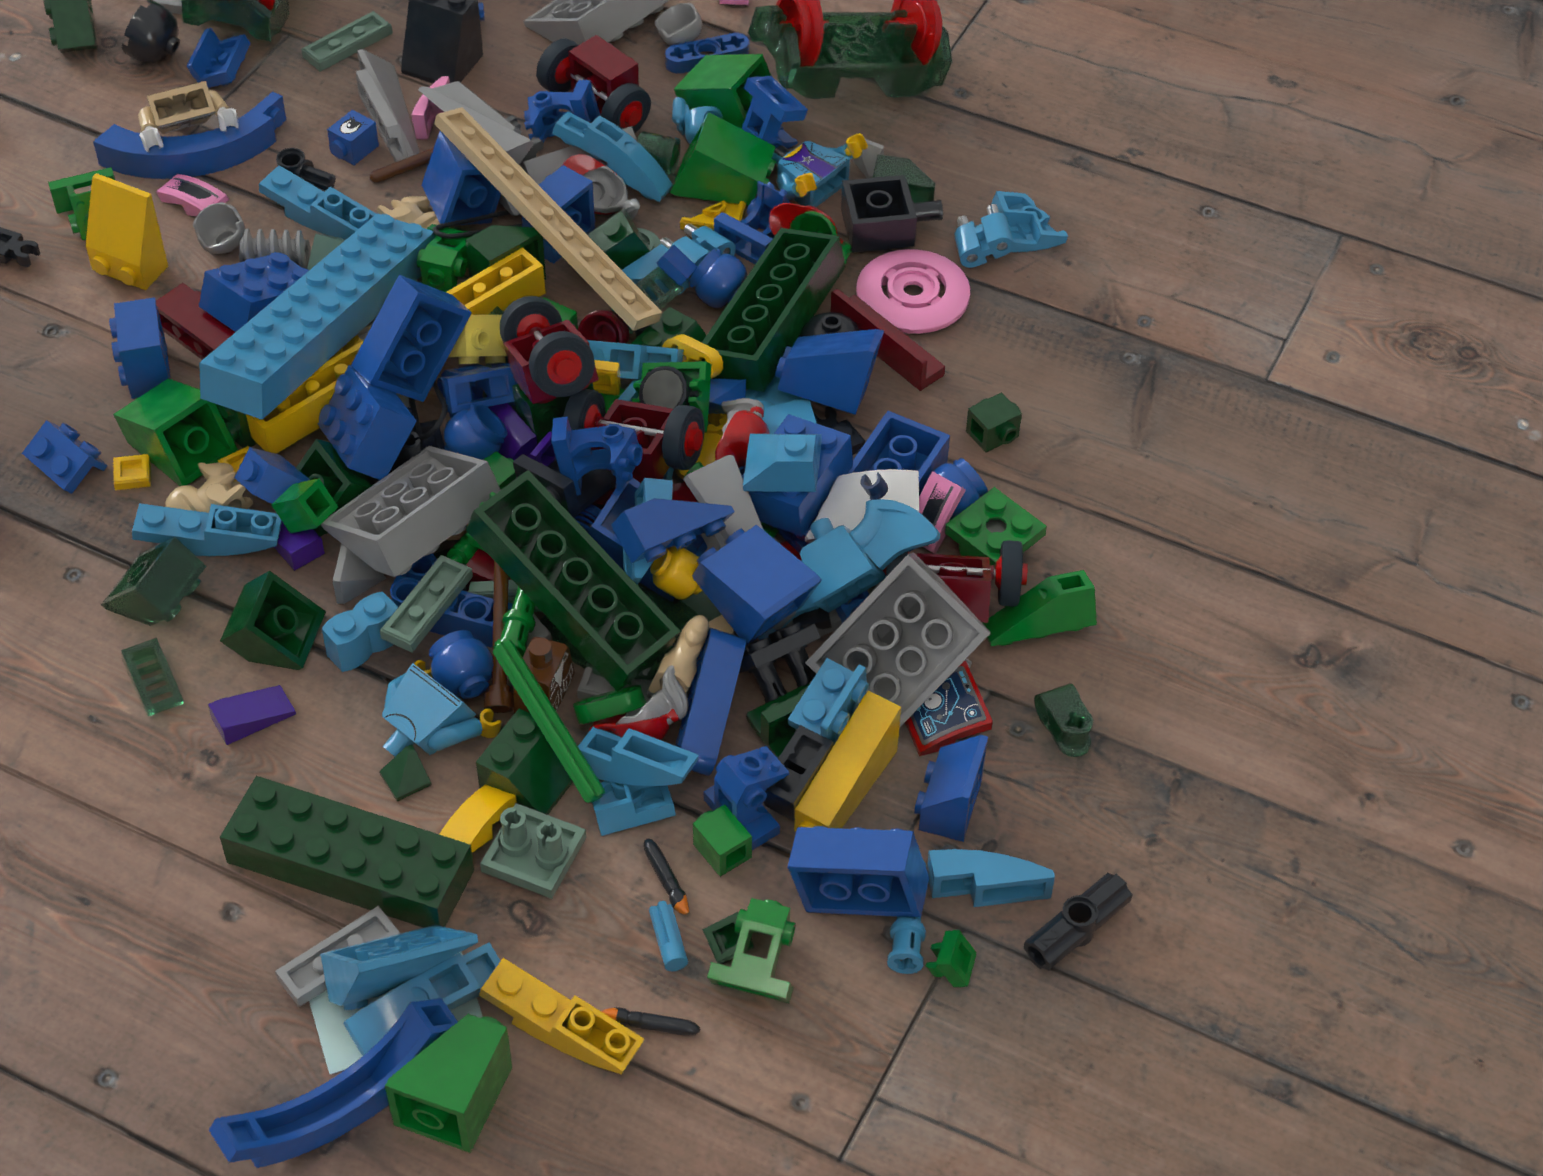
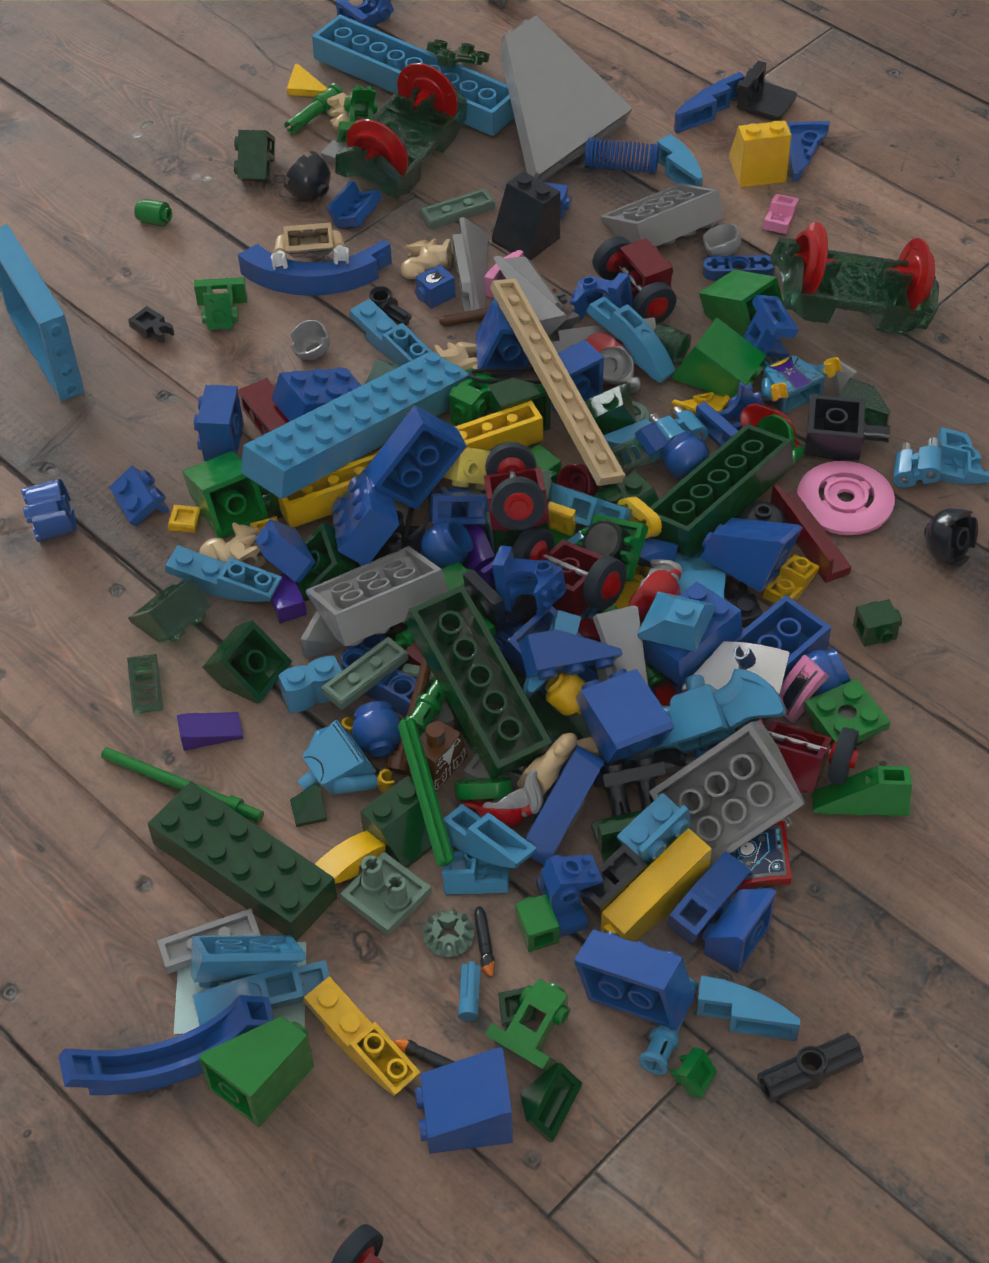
camera: 20 degrees right, 0 degrees up
(124, 233) = (234, 331): yellow slope -> none
(190, 193) = (299, 308): bright pink slope -> none
(222, 782) = (178, 783): none -> green bar
(297, 249) = (358, 367): light grey piece -> none
(304, 505) = (297, 574): green brick -> none
(329, 105) = (425, 256): none -> tan animal
(627, 889) = (448, 945): none -> sand green gear
(689, 120) = (703, 318): dark azure piece -> none
(711, 1058) = (466, 1104): none -> blue slope
(800, 1031) = (550, 1099): none -> dark green slope
(883, 394) = (792, 579): none -> yellow slope
(907, 766) = (707, 897): none -> blue slope
(1044, 309) = (951, 535): none -> black cylinder
(1065, 719) = (856, 890): clear green piece -> none

